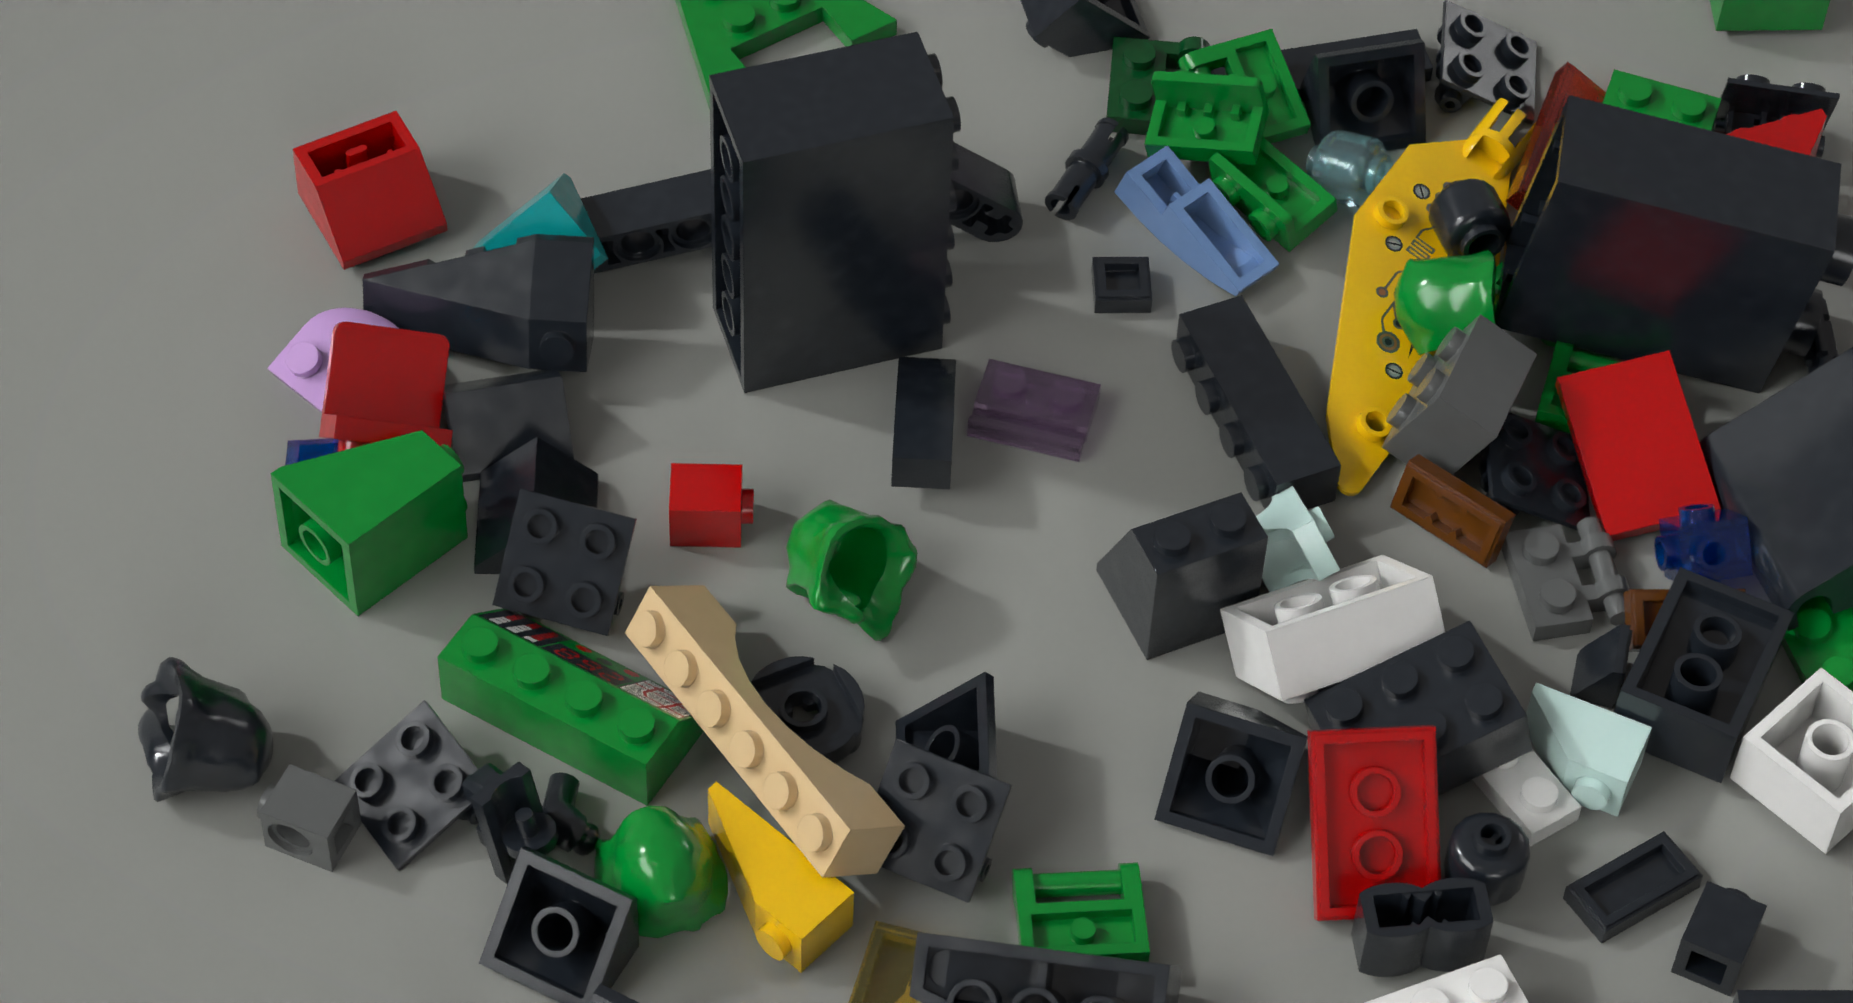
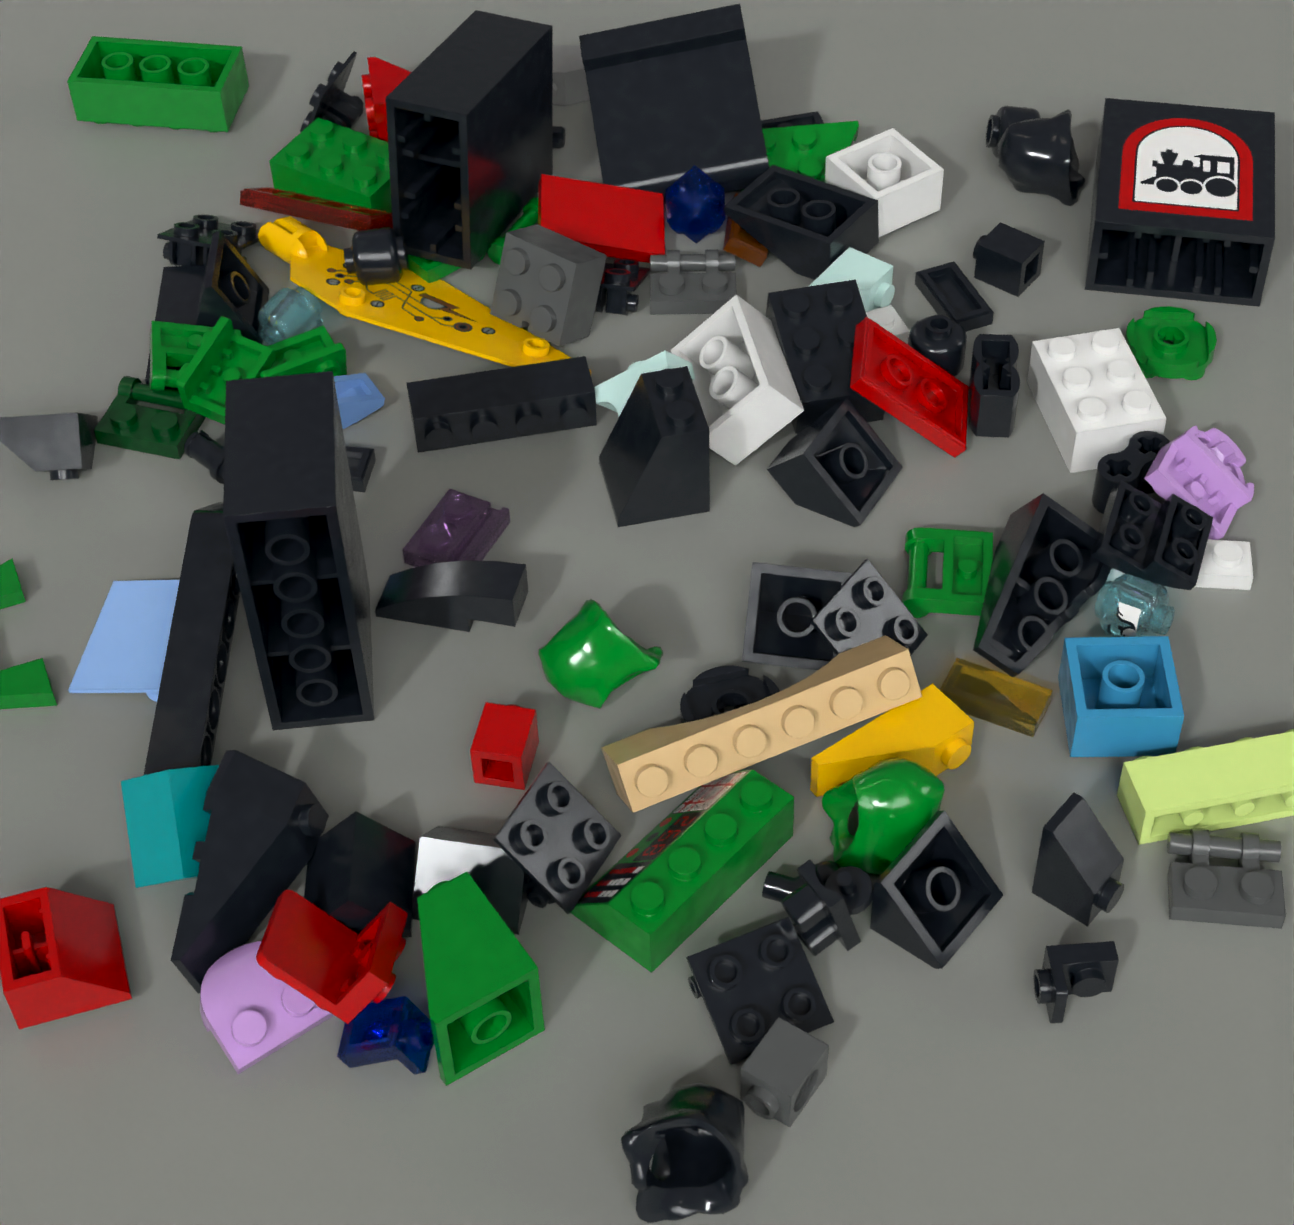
camera: 75 degrees left, 5 degrees down
(1443, 295) = (459, 268): green piece -> none
(1452, 510) = (627, 319): reddish brown plate -> none
(1602, 667) = (776, 270): black slope -> none

